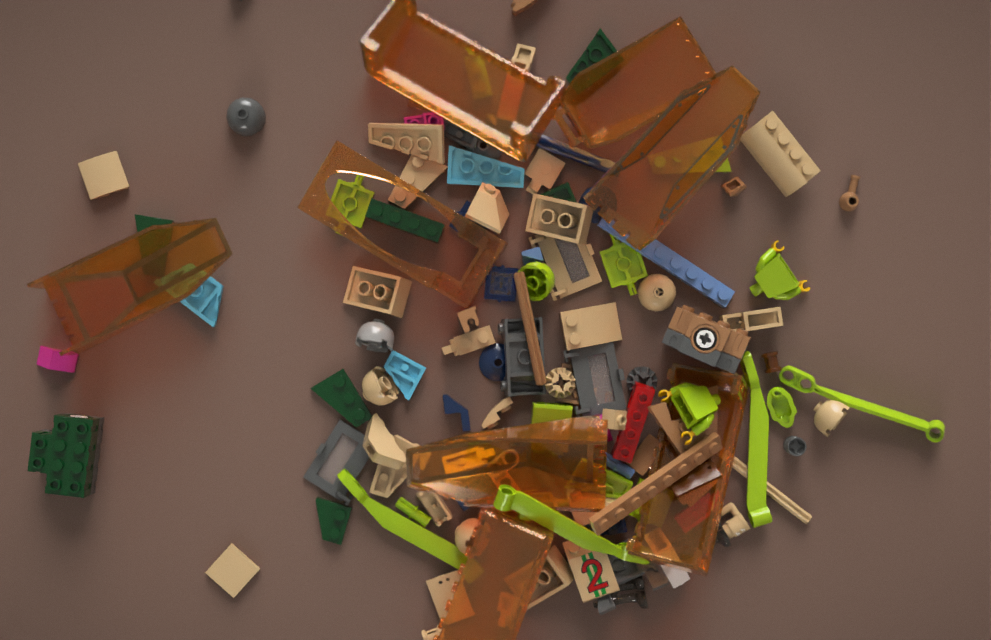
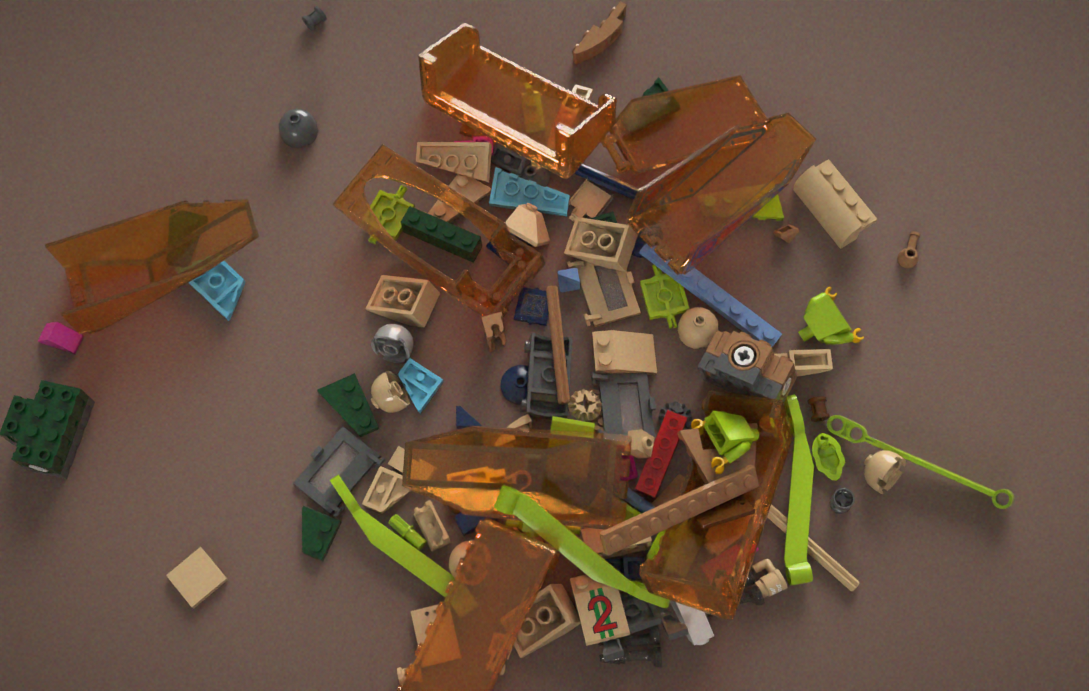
camera: 15 degrees right, 20 degrees down
(103, 175) = (147, 168): tan slope -> none
(381, 445) = (383, 452): tan slope -> none
(470, 341) = (493, 360): tan hinge -> none
(539, 280) = (573, 299): lime cylinder -> none

